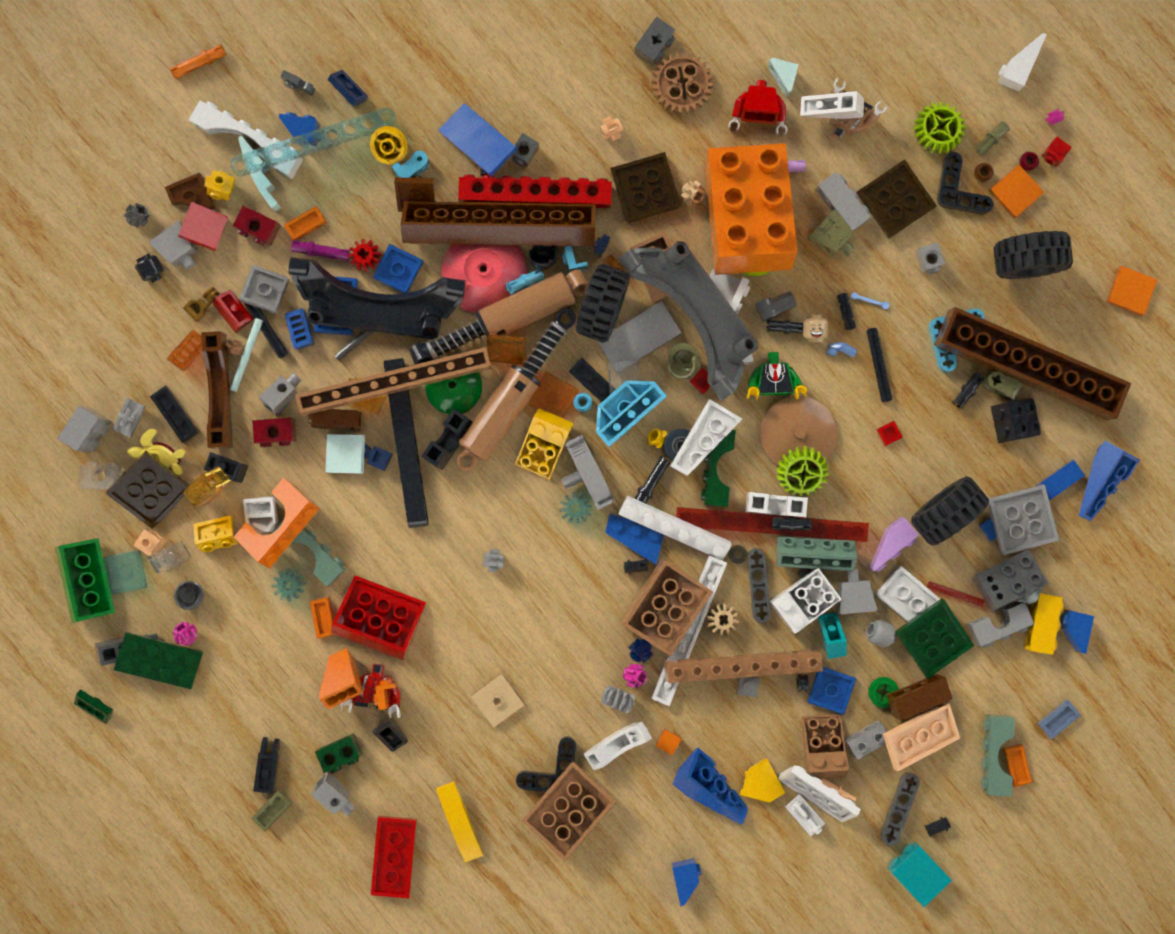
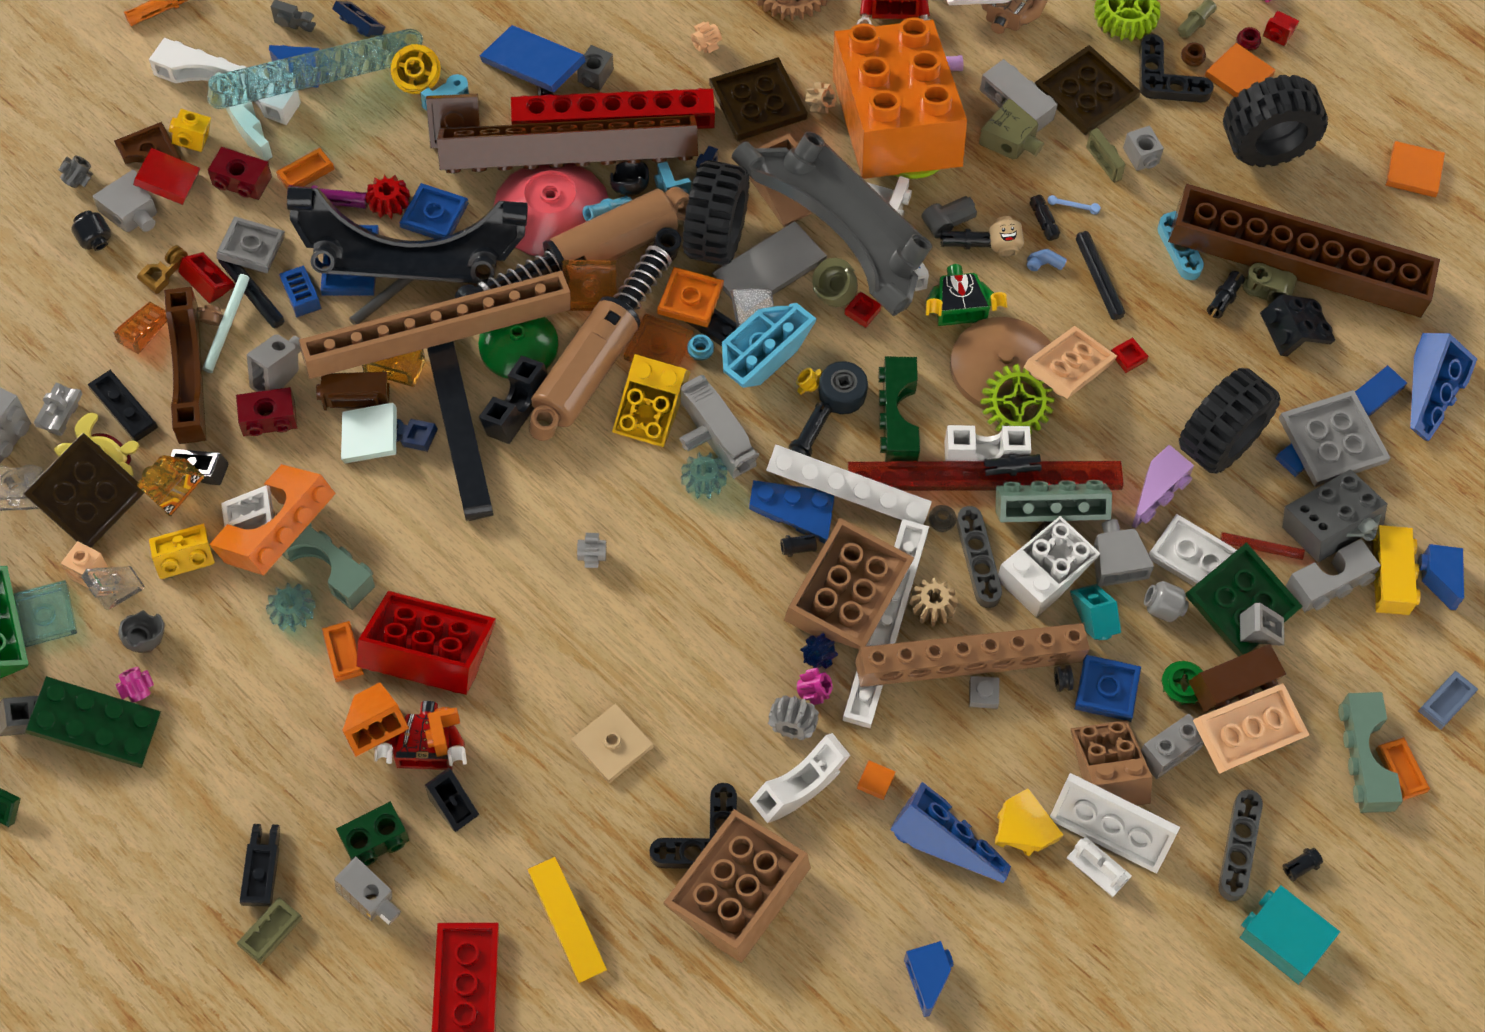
camera: 10 degrees left, 25 degrees down
(579, 361) = (690, 297): none -> orange tile
(709, 429) = (875, 362): white wing -> none
(845, 446) = (1070, 362): none -> light nougat plate
(901, 261) = (1105, 155): none -> olive plate
(942, 663) = (1261, 626): none -> light grey slope

